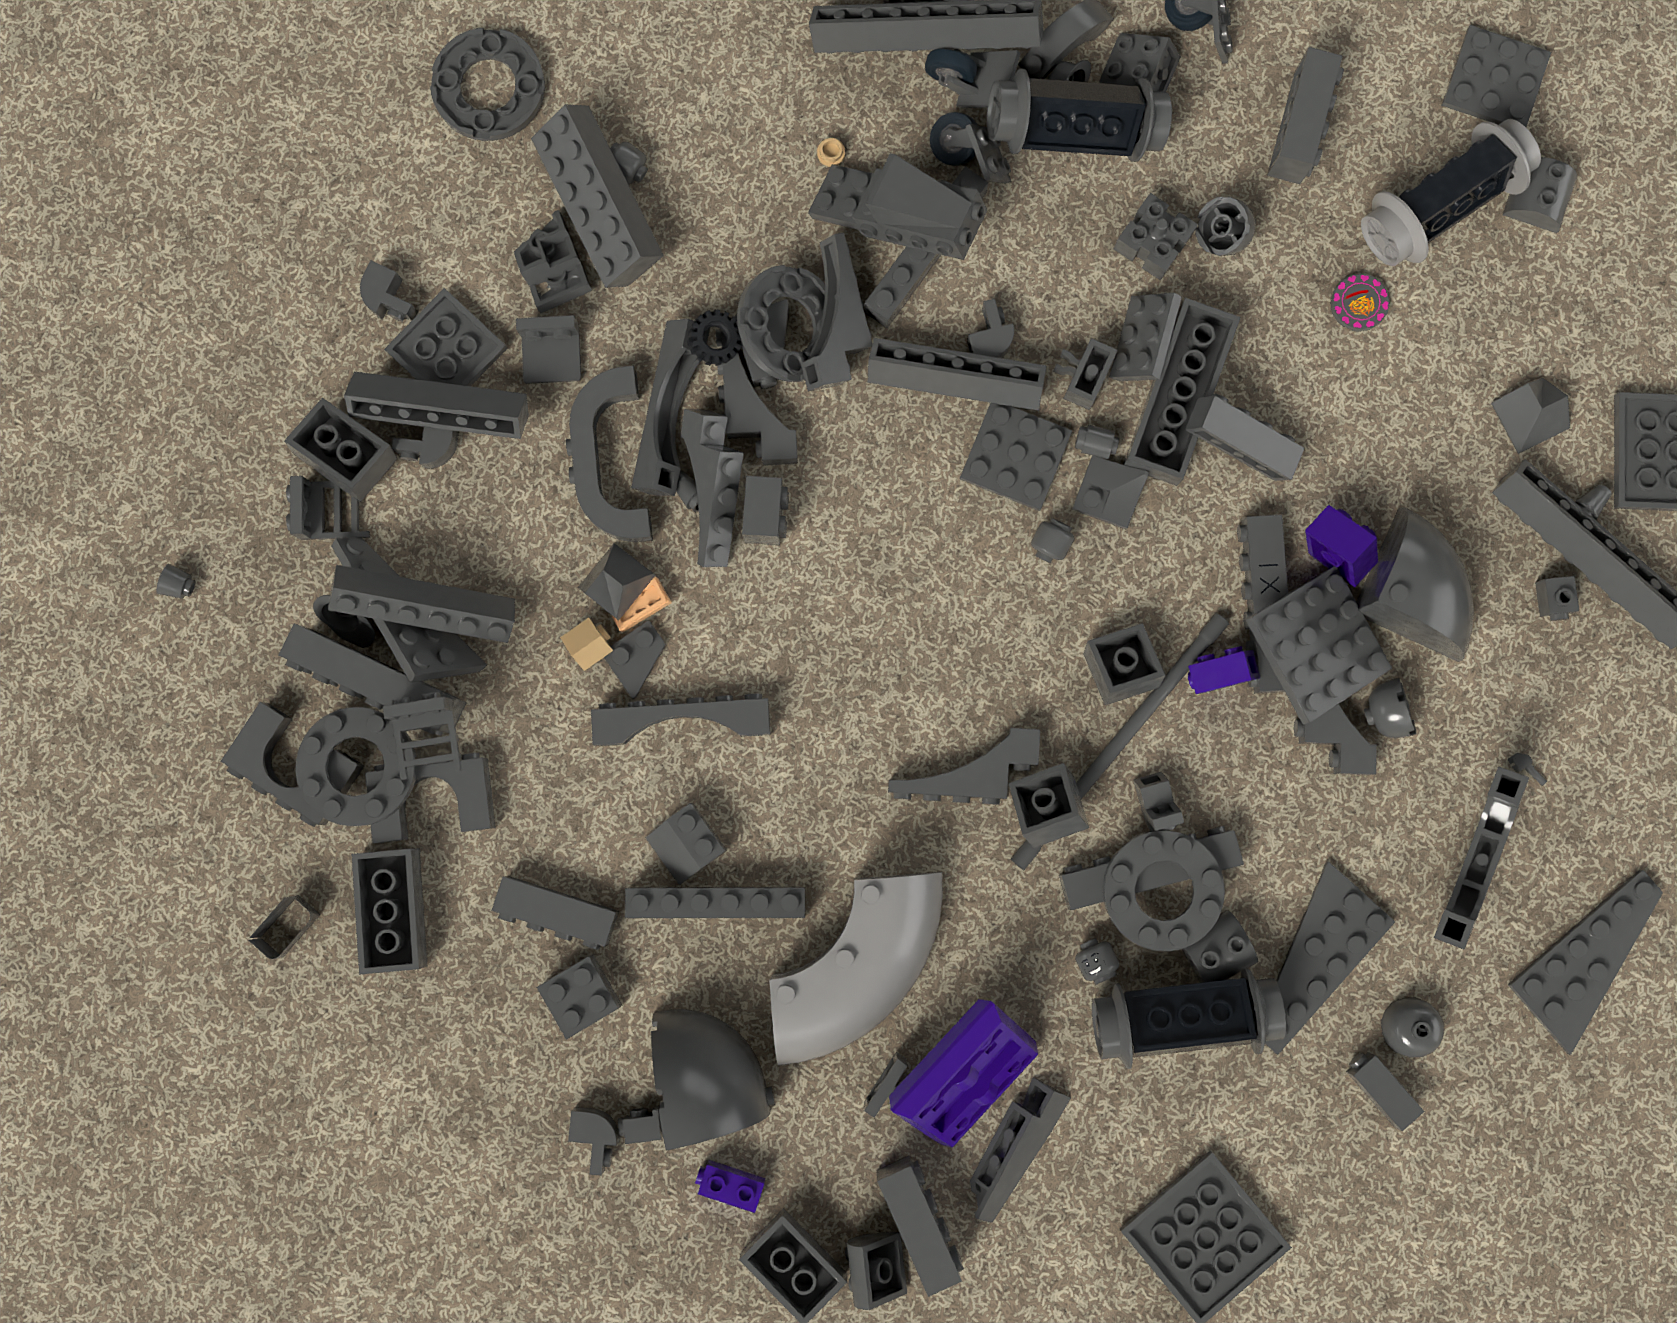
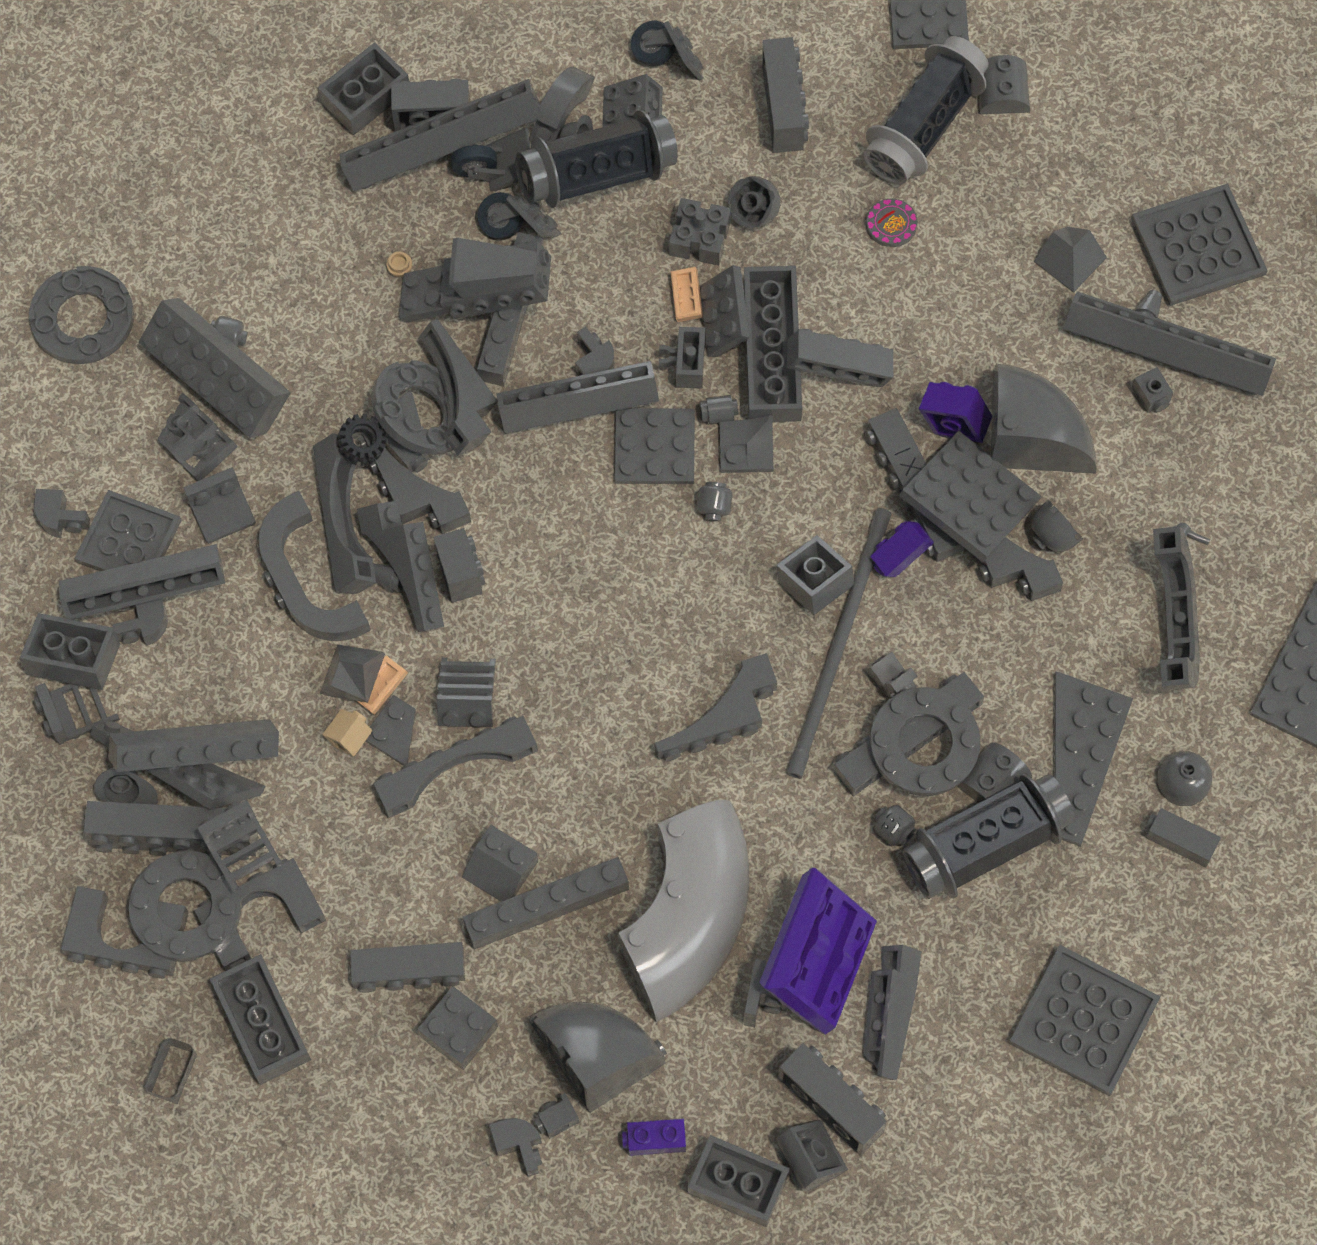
camera: 25 degrees left, 15 degrees down
(714, 659) = (466, 693): none -> dark grey plate
(1048, 805) = (799, 709): dark grey brick -> none
(1114, 301) = (686, 294): none -> light nougat plate

